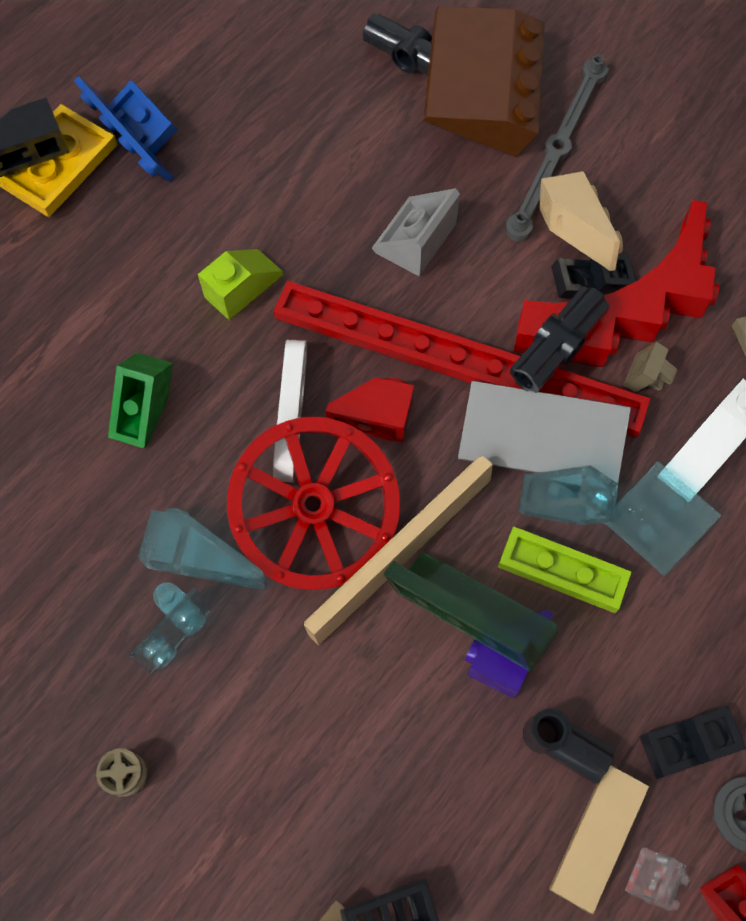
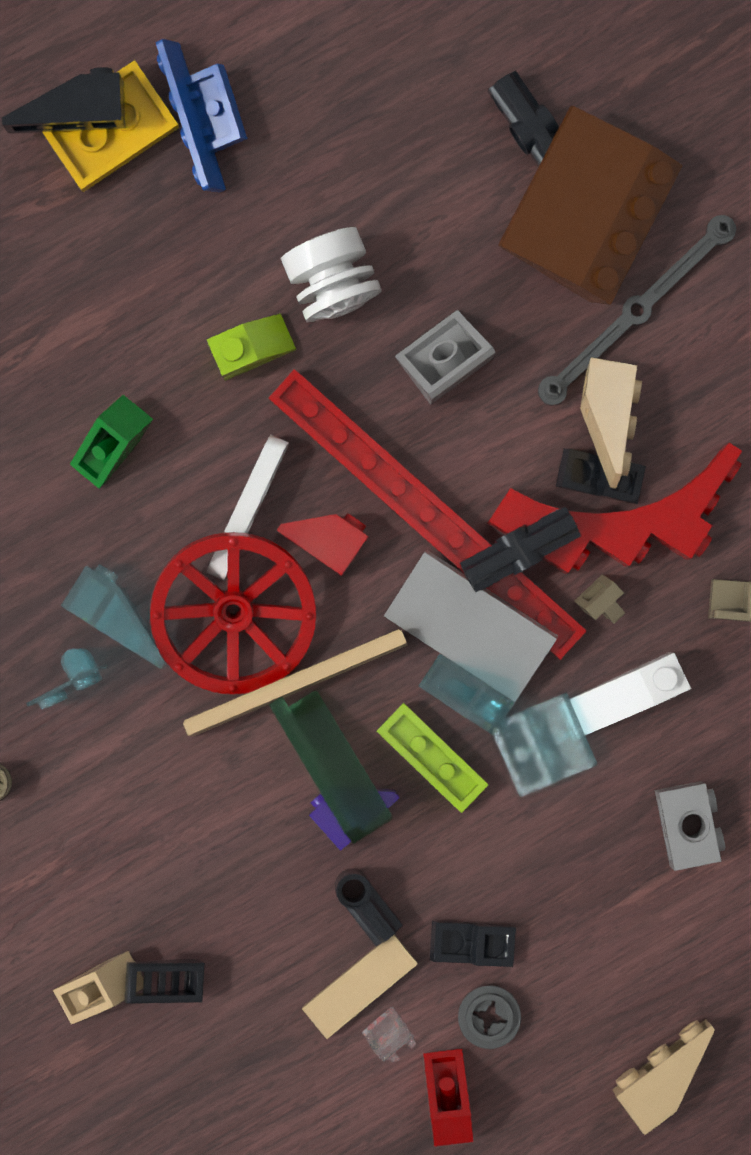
camera: 25 degrees right, 20 degrees up
(289, 190) = (332, 278): none -> white wheel

